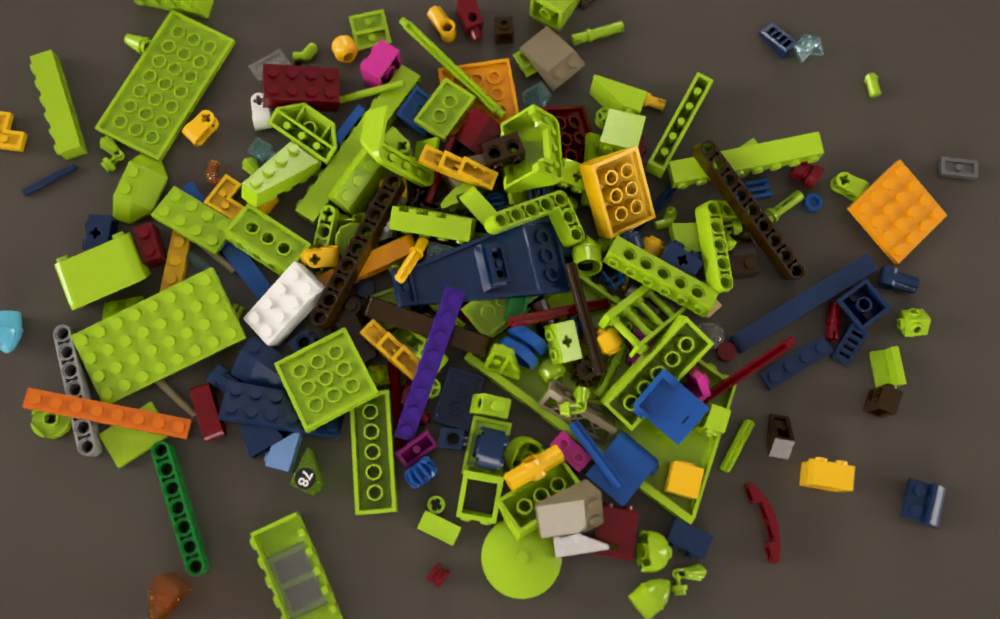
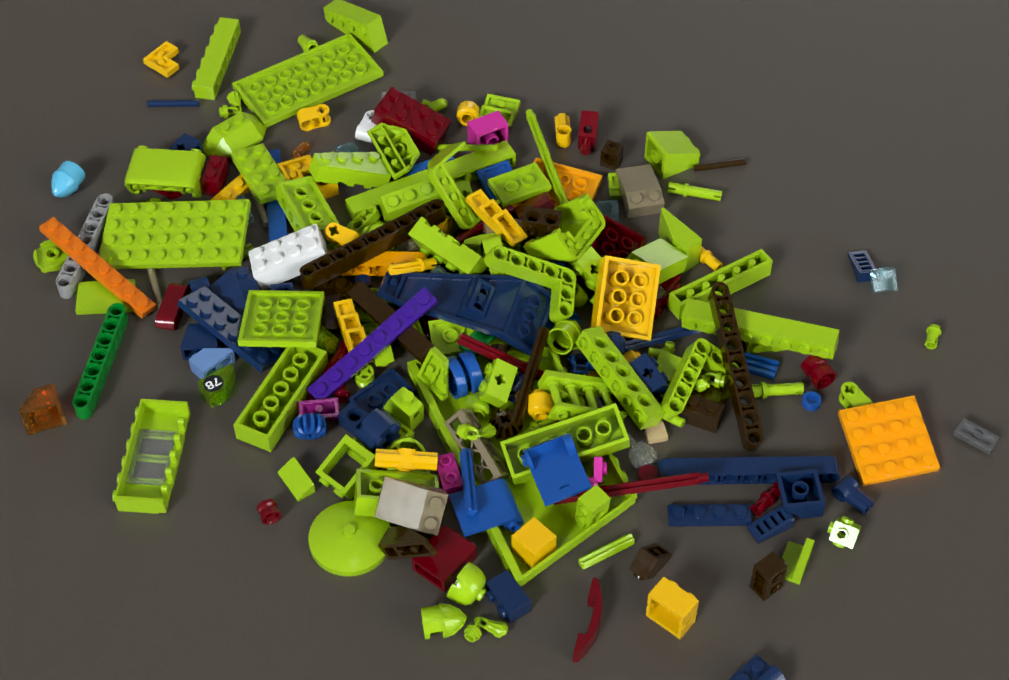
camera: 35 degrees right, 25 degrees down
(430, 506) = (310, 459): lime bush -> none

